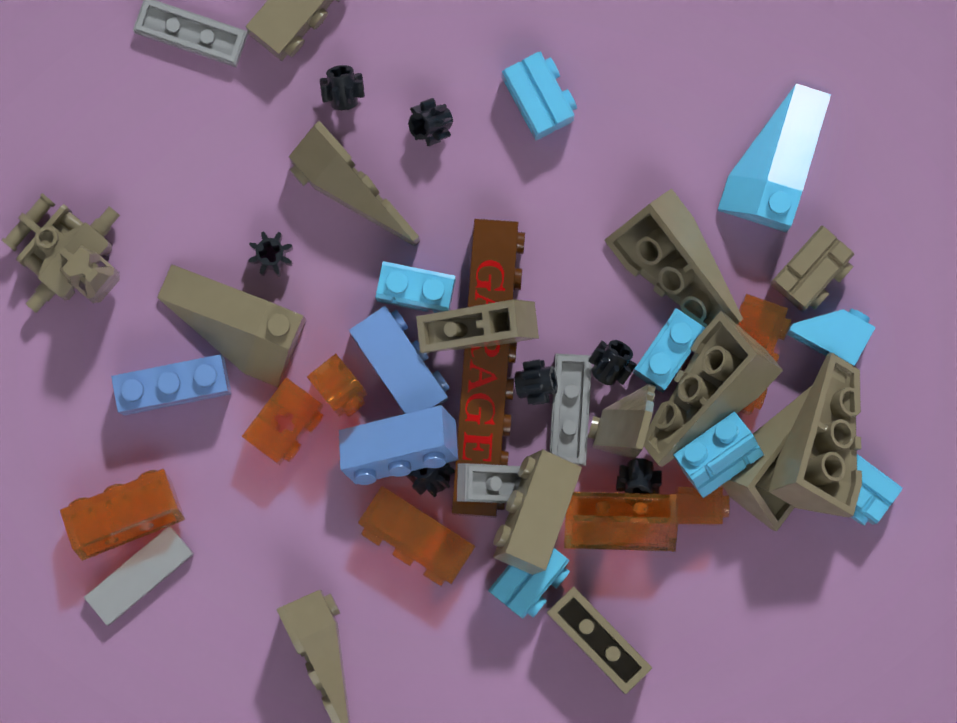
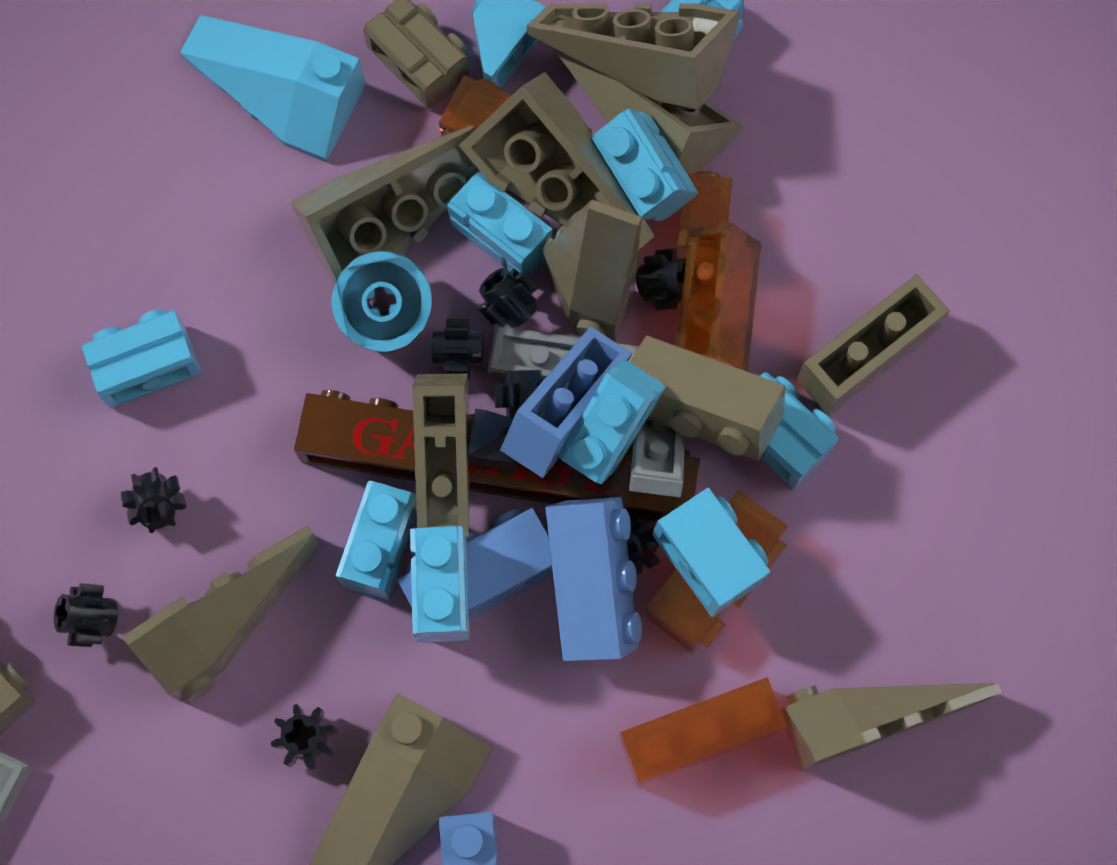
camera: 85 degrees left, 10 degrees down
(285, 401) = (513, 732): clear orange brick -> none
(298, 533) = (702, 731): none -> clear orange brick
(338, 386) = (503, 653): clear orange brick -> none
(379, 336) = (439, 584): none -> medium azure brick
(422, 528) = (711, 551): none -> medium azure brick
(491, 365) = (486, 441): none -> black slope
(507, 446) = (611, 421): none -> medium azure brick
(523, 412) = (559, 402): none -> medium blue brick
(568, 329) = (457, 347): none -> black gear
(585, 252) = (367, 324): none -> medium azure brick

